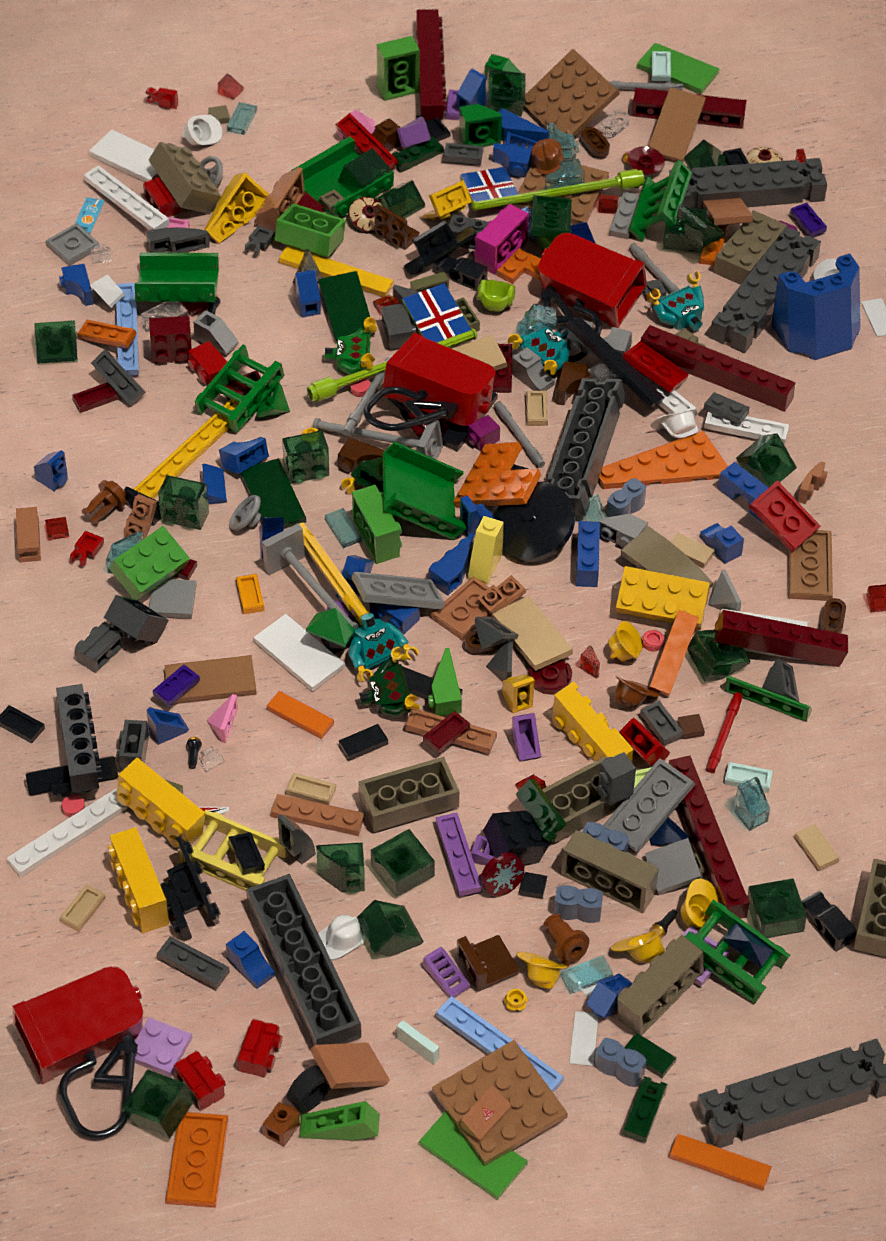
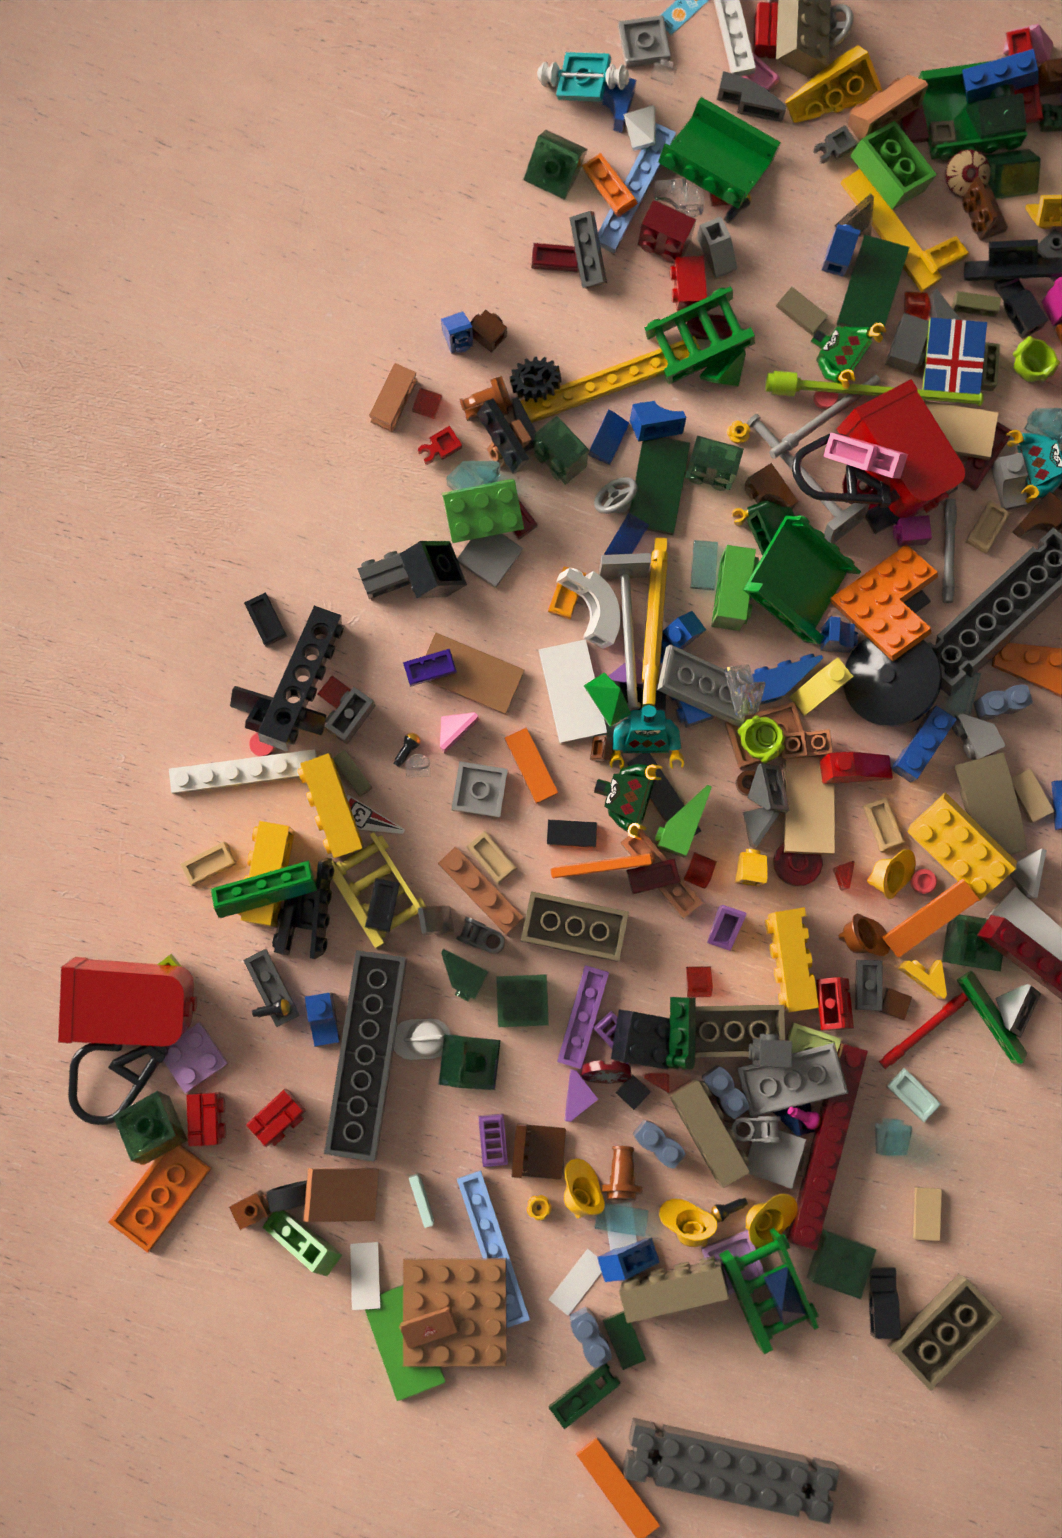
camera: 25 degrees right, 30 degrees up
(43, 278) = (583, 76): none -> teal plate
(77, 460) = (488, 330): none -> reddish brown brick
(108, 744) = (333, 691): none -> clear red tile
(133, 471) = (535, 379): none -> black gear
(133, 510) = (503, 436): none -> black plate
(145, 876) = (263, 889): none -> green slope
(165, 725) = (398, 705): blue slope -> none
(210, 966) = (280, 1008): none -> black piece
(270, 748) = (479, 789): none -> light grey plate
(280, 582) = (601, 602): none -> white arch
(305, 345) = (801, 310): none -> dark tan tile
(341, 835) = (479, 936): none -> dark grey piece
(347, 674) = (601, 748): none -> reddish brown tile
(359, 136) = (1016, 70): none -> blue arch
(385, 266) = (944, 254): none -> yellow plate
(402, 737) = (603, 865): none -> orange tile
(409, 1123) = (365, 1276): none -> white sticker
(414, 385) = (865, 455): none -> bright pink slope
(430, 579) = (744, 692): none -> clear slope
(465, 602) = (762, 738): none -> lime hair
(480, 716) = (700, 870): none -> clear red slope
(492, 905) = (578, 1096): none -> medium lavender slope
(546, 590) = (855, 767): none -> red slope
(547, 864) = (659, 1079): none -> clear red slope
(596, 620) = (883, 824): none -> tan tile
(649, 849) = (759, 1129): none -> light grey piece
(682, 825) = (810, 1119): none -> dark pink piece
(705, 696) = (931, 981): none -> yellow slope

